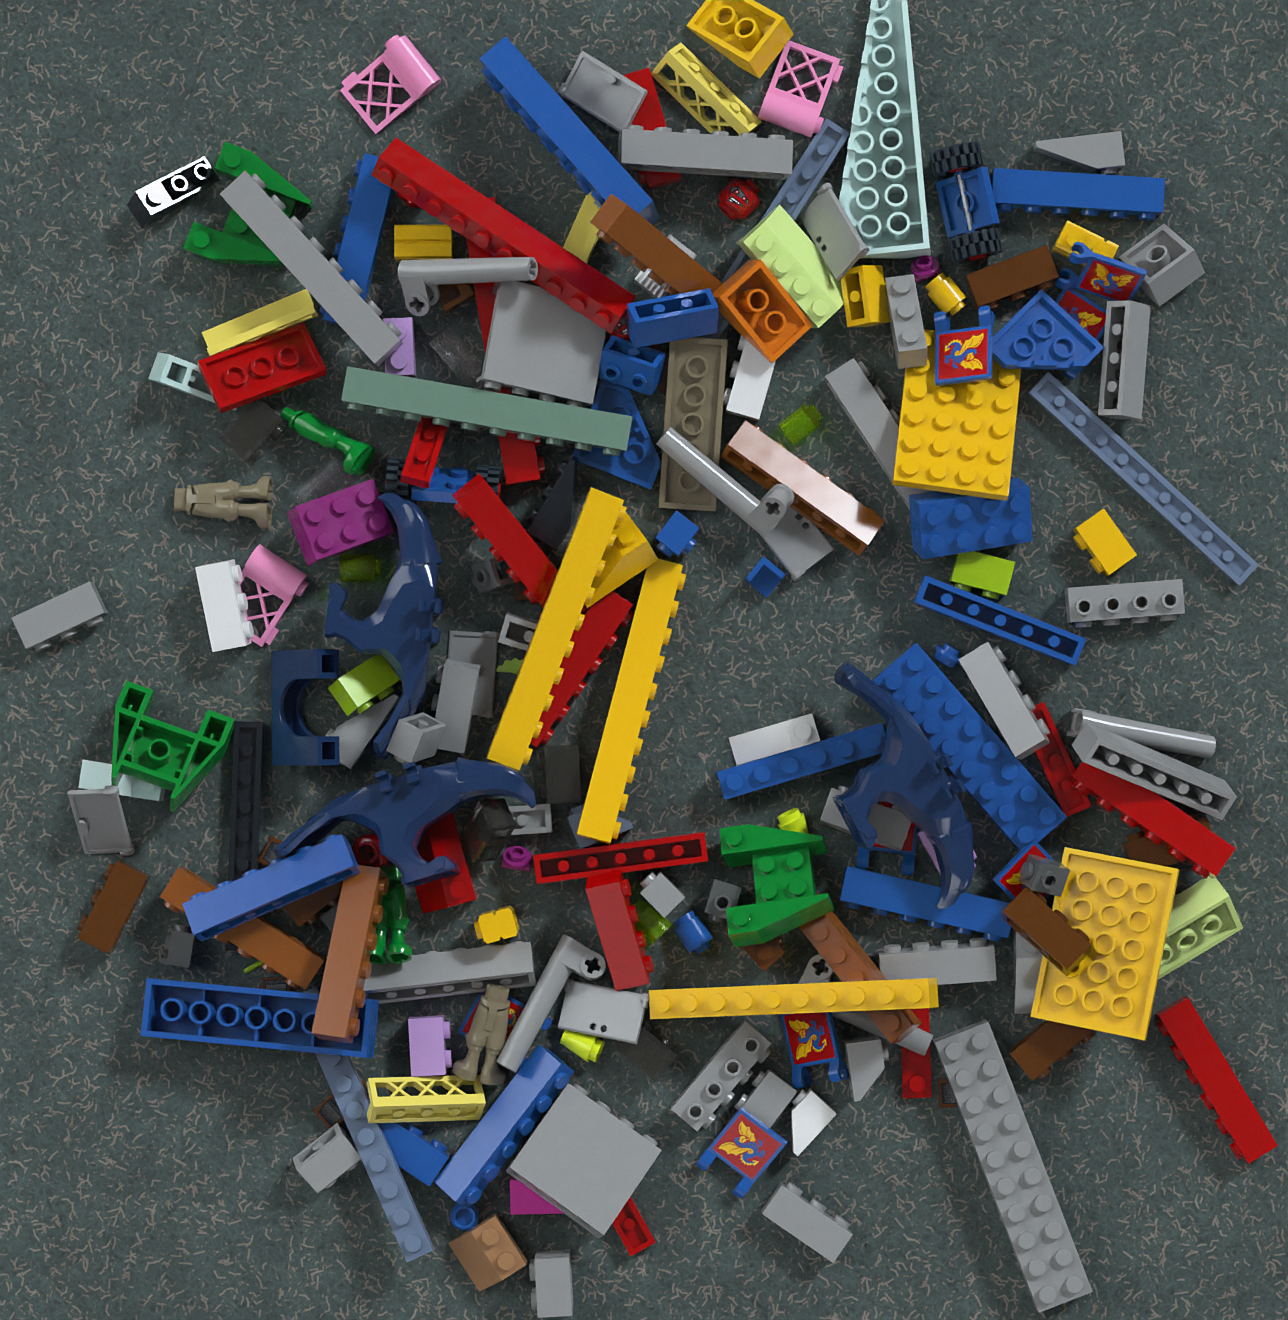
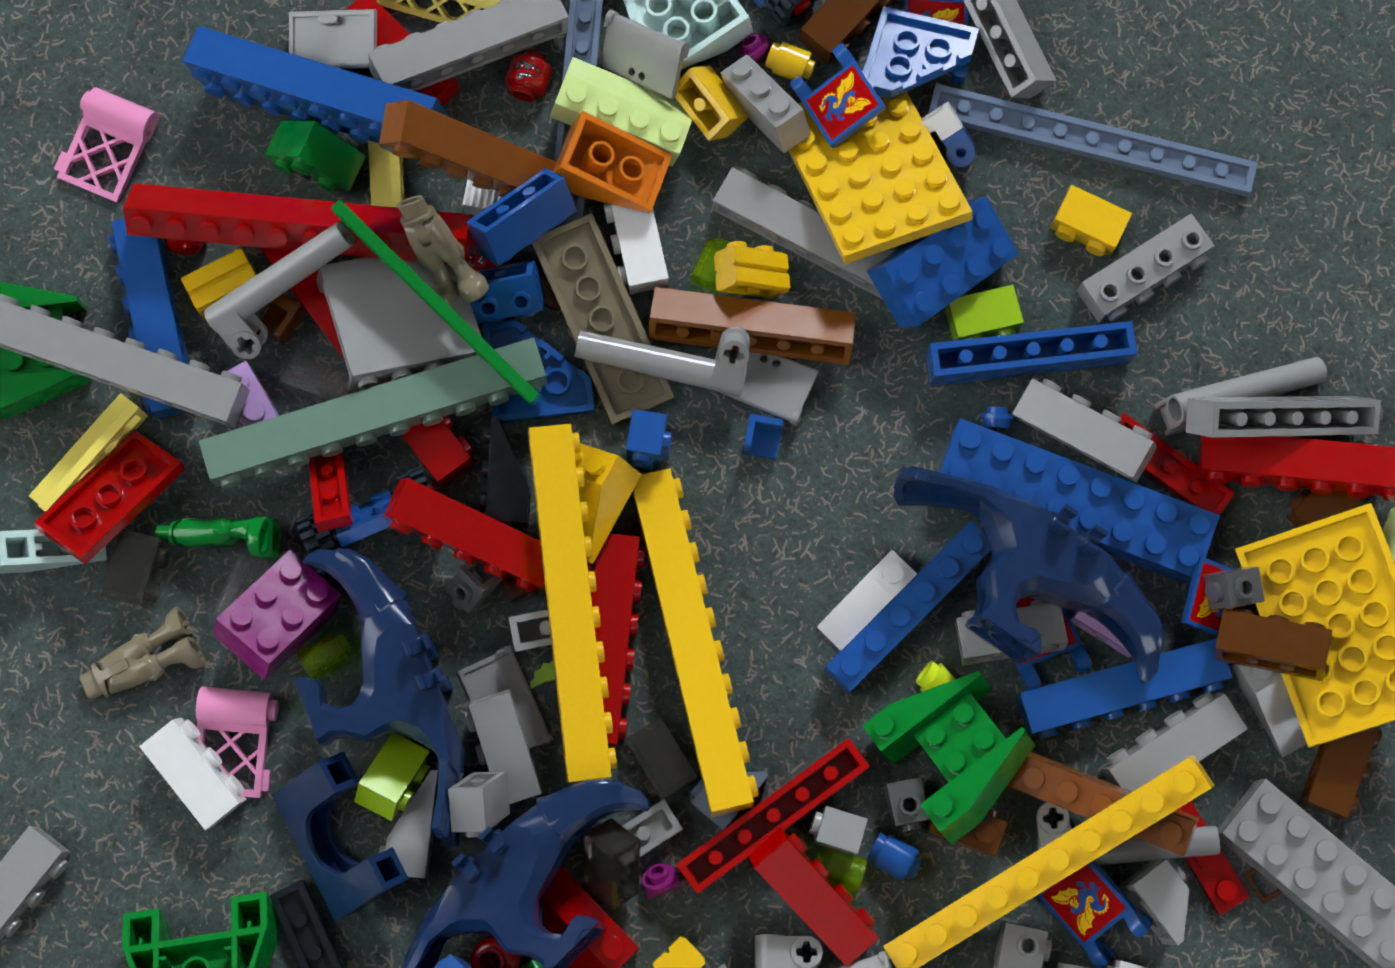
camera: 30 degrees left, 10 degrees down
(543, 178) = (316, 152): none -> green brick
(572, 356) = (436, 303): none -> green tile
(594, 314) = (436, 244): none -> dark tan piece
(824, 447) = (751, 270): none -> yellow brick
(1036, 418) = (958, 143): none -> leg

